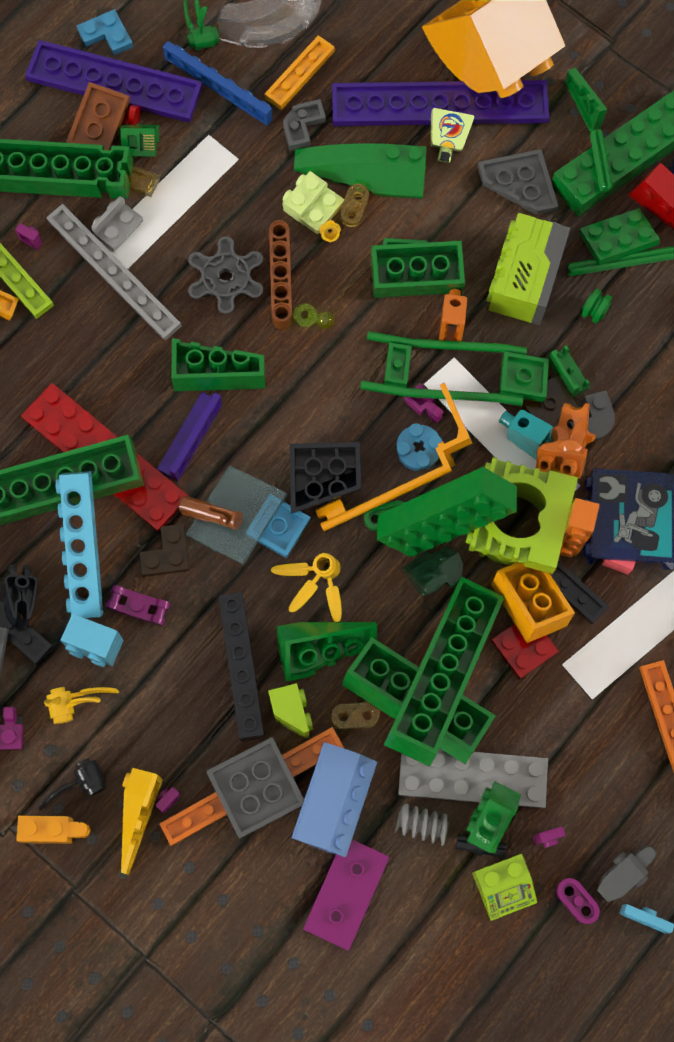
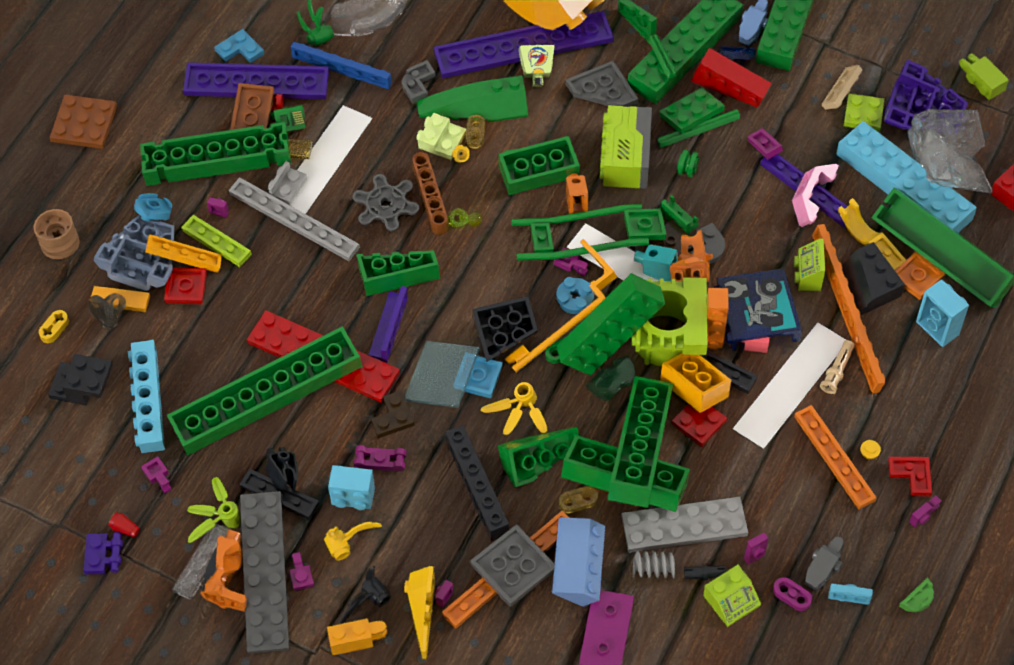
camera: 10 degrees left, 15 degrees down
(81, 483) = (315, 367): medium azure brick -> none
(210, 513) = (421, 375): dark orange piece -> none
(288, 709) = (524, 503): lime slope -> none
(299, 72) = (405, 45): light orange plate -> none
(492, 816) = (708, 542): green hinge -> none

